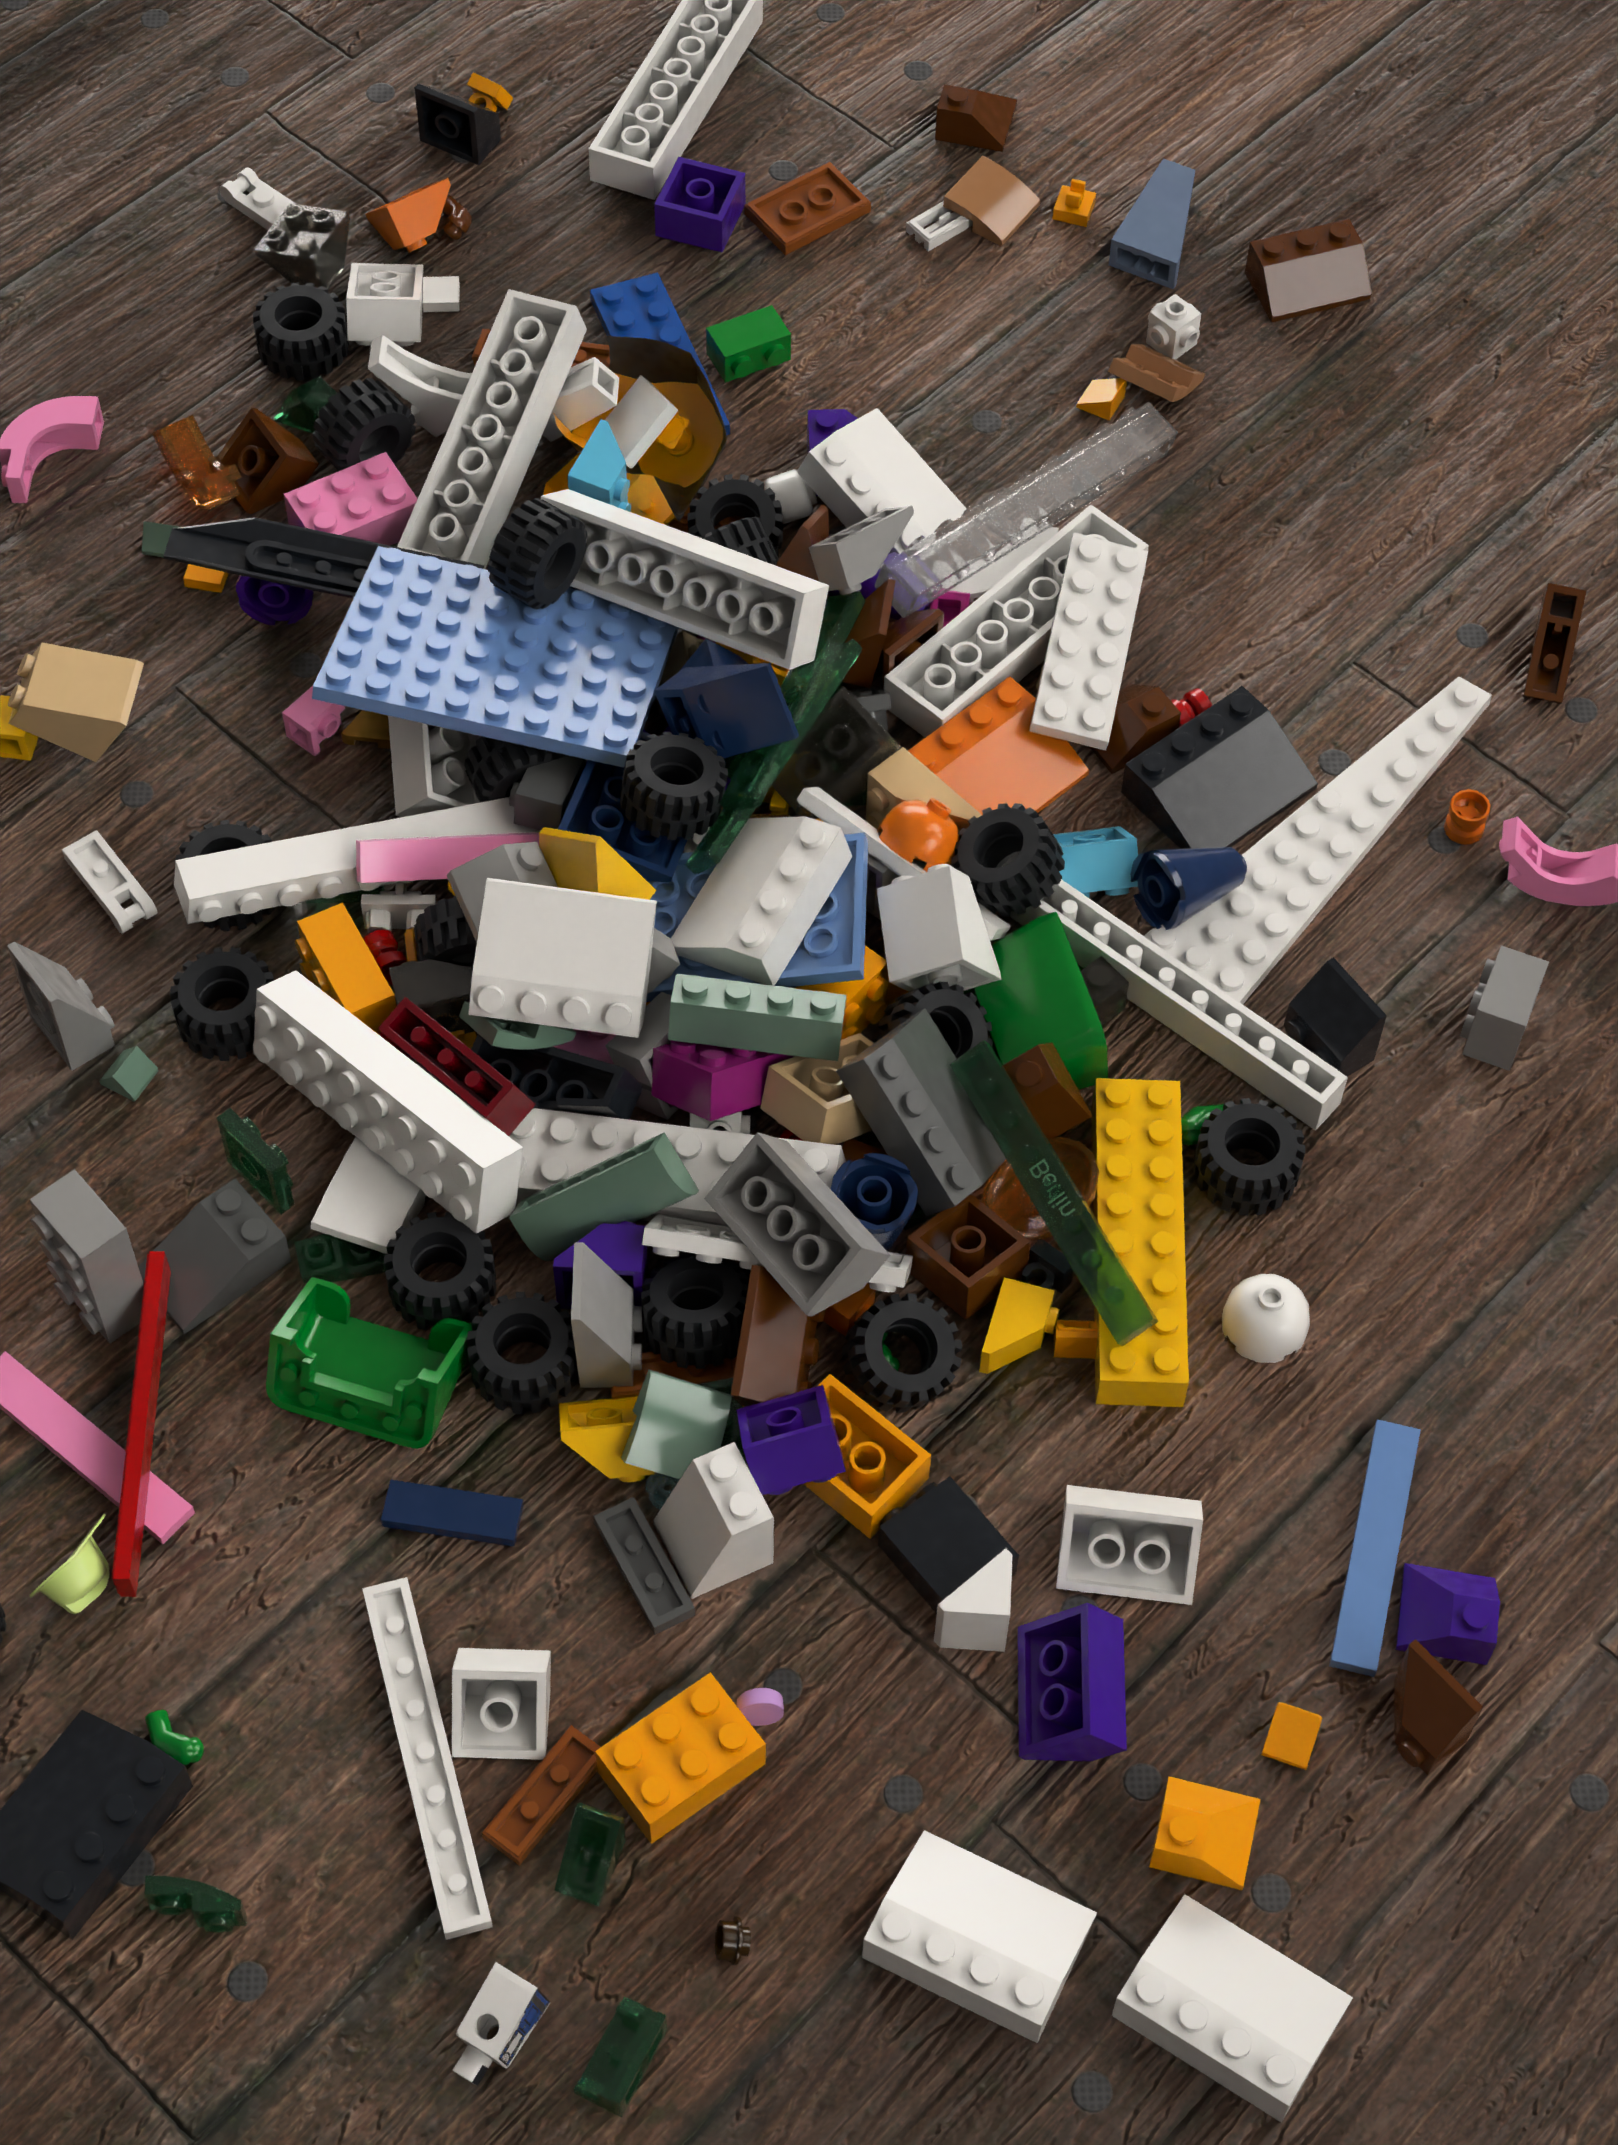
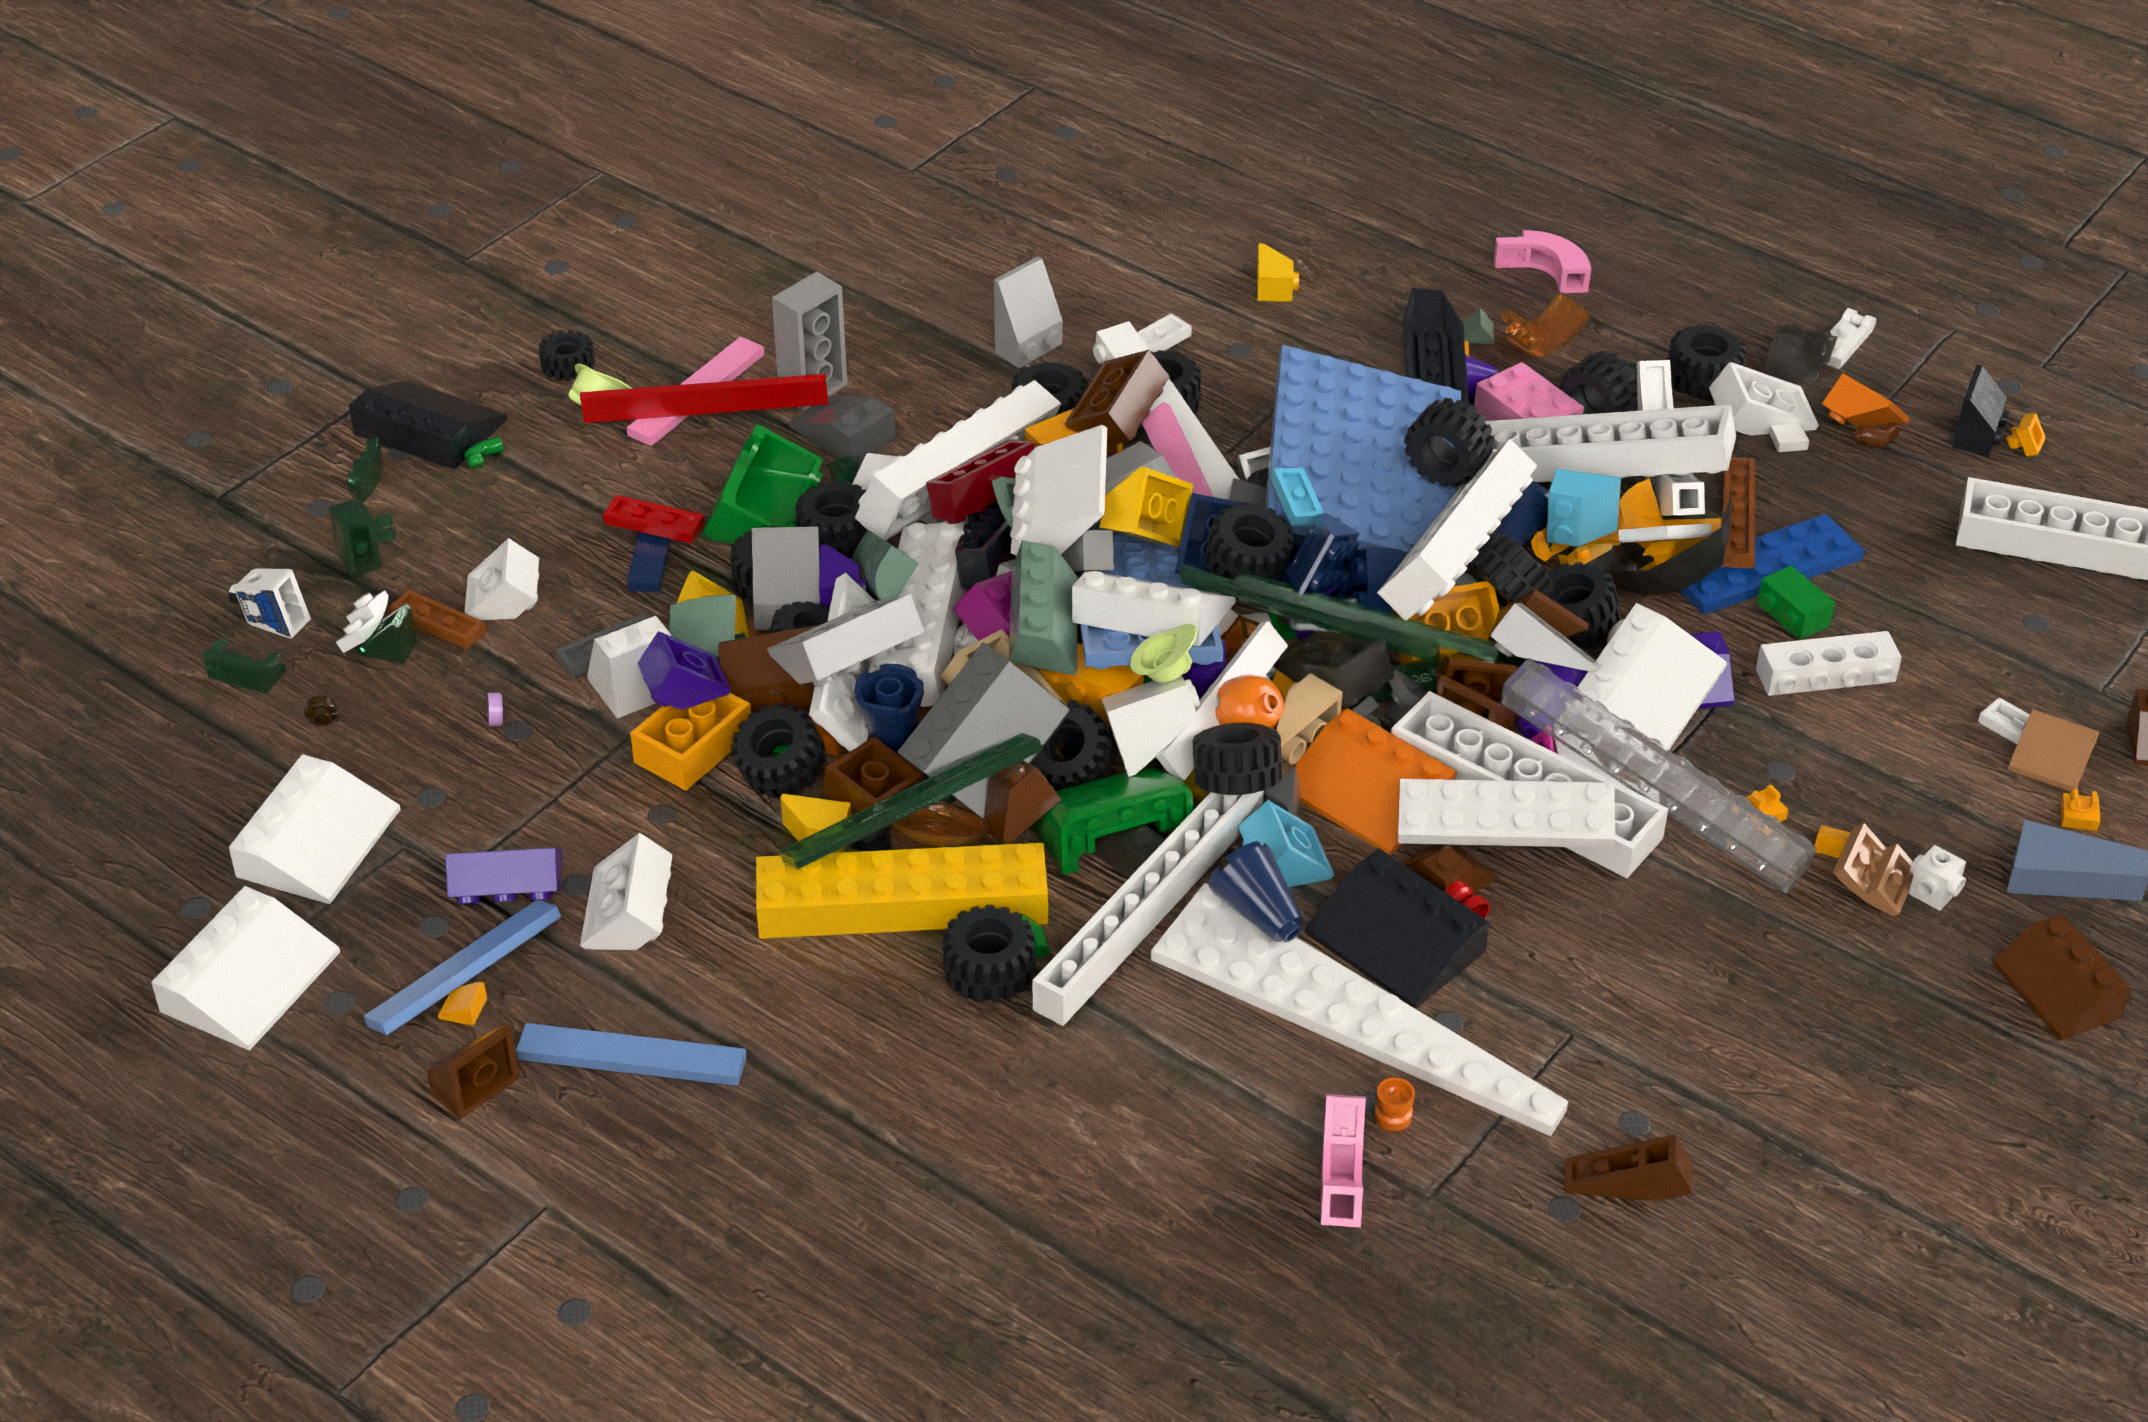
camera: 85 degrees right, 15 degrees down
(74, 697) = (1294, 290): tan slope -> none
(130, 1073) = (991, 372): sand green slope -> none
(256, 1160) = (913, 420): clear green plate -> none
(267, 460) = (1557, 361): reddish brown slope -> none
(335, 894) = (1120, 396): none -> reddish brown slope
(380, 1895) = (358, 535): none -> clear green brick
(402, 1495) = (653, 519): none -> red plate
(427, 1759) = (461, 558): white plate -> none
(553, 1886) = (363, 620): none -> white slope
(618, 714) = (1296, 495): none -> medium azure plate
(680, 1757) = (454, 670): light orange brick -> none
(700, 204) = (1948, 559): dark purple brick -> none
(807, 208) = (1991, 638): dark orange tile -> none
(843, 341) = (1828, 663): none -> white brick
(891, 877) = (1165, 654): none -> yellowish green piece
(940, 1540) = (619, 797): black brick -> none
(978, 1610) = (565, 807): white slope -> none
(1047, 440) = (1769, 802): none -> light orange tile
(1205, 1833) = (385, 948): light orange slope -> none
(1234, 1737) = (461, 967): none -> medium blue tile
(1266, 1318) = (839, 977): white cylinder -> none
(1336, 1019) = (1133, 1007): black slope -> none
(1448, 1613) = (568, 1102): dark purple slope -> none
(1502, 1007) = (1163, 1100): light grey piece -> none

